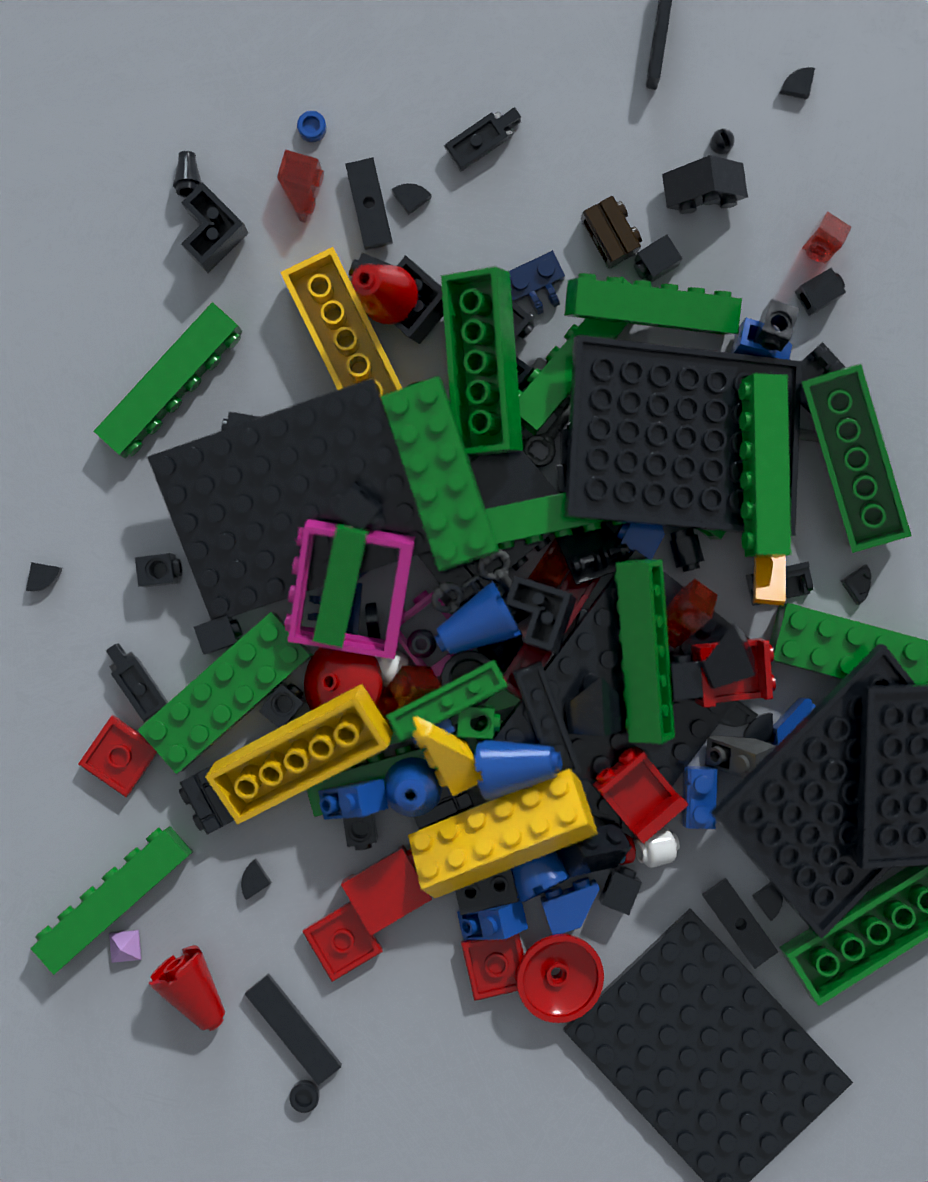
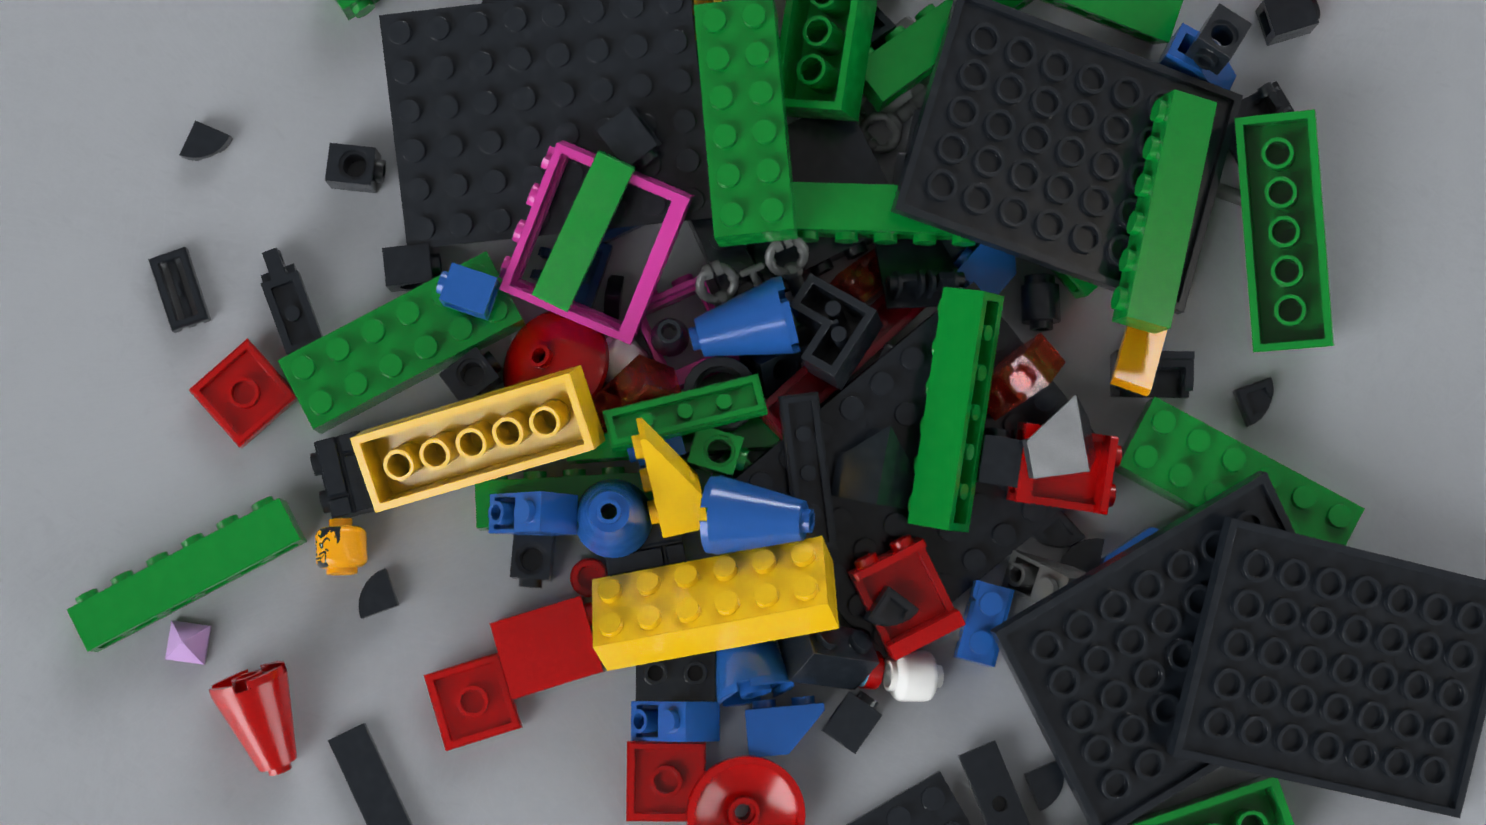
camera: 15 degrees right, 5 degrees down
(74, 703) = (190, 320): none -> black tile
(219, 853) = (341, 547): none -> light orange head
(264, 648) = (468, 290): none -> blue brick
(401, 828) = (584, 572): none -> red tile
(630, 806) = (890, 609): none -> black tile

